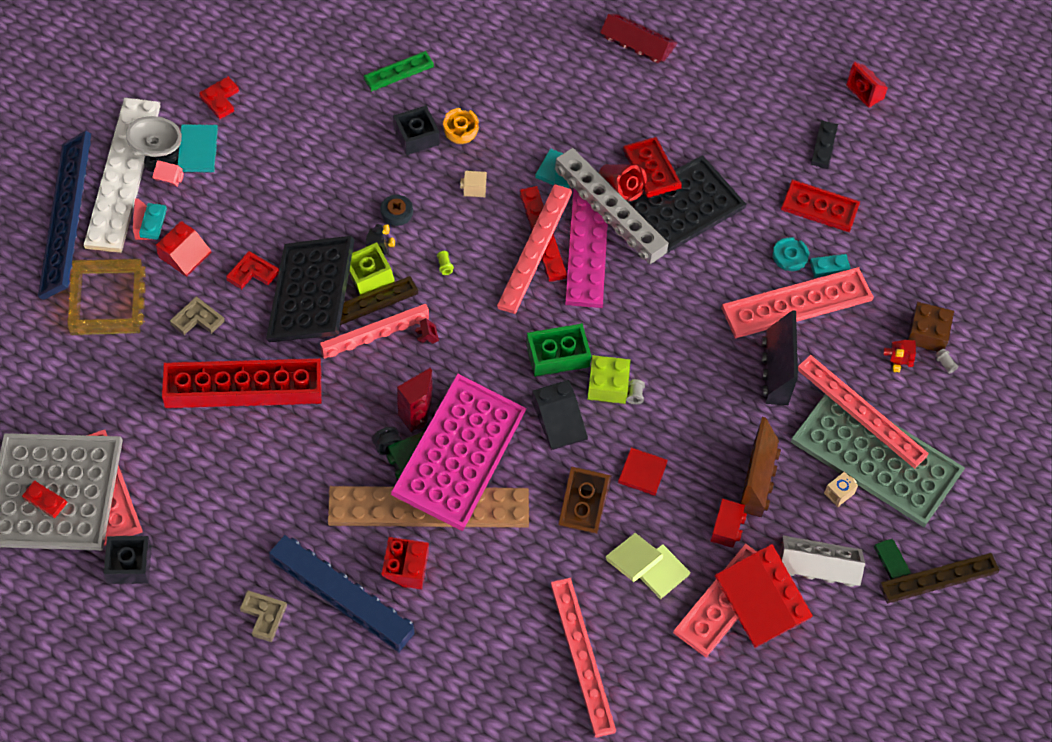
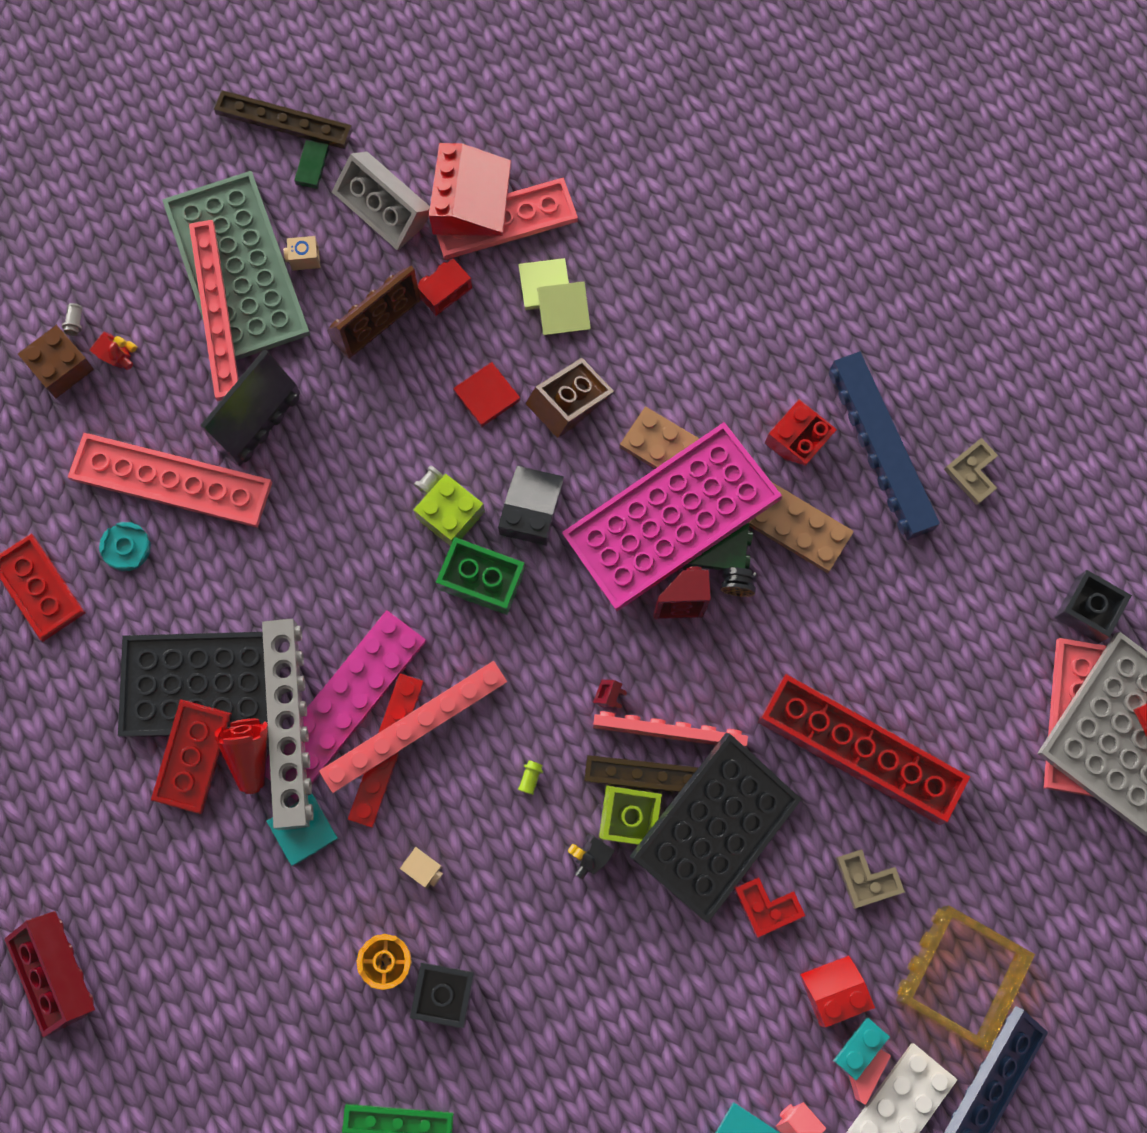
camera: 145 degrees left, 15 degrees up
(396, 216) = (542, 899): black wheel -> none
(583, 658) = (681, 249): coral plate -> none
(829, 265) = (93, 505): teal plate -> none

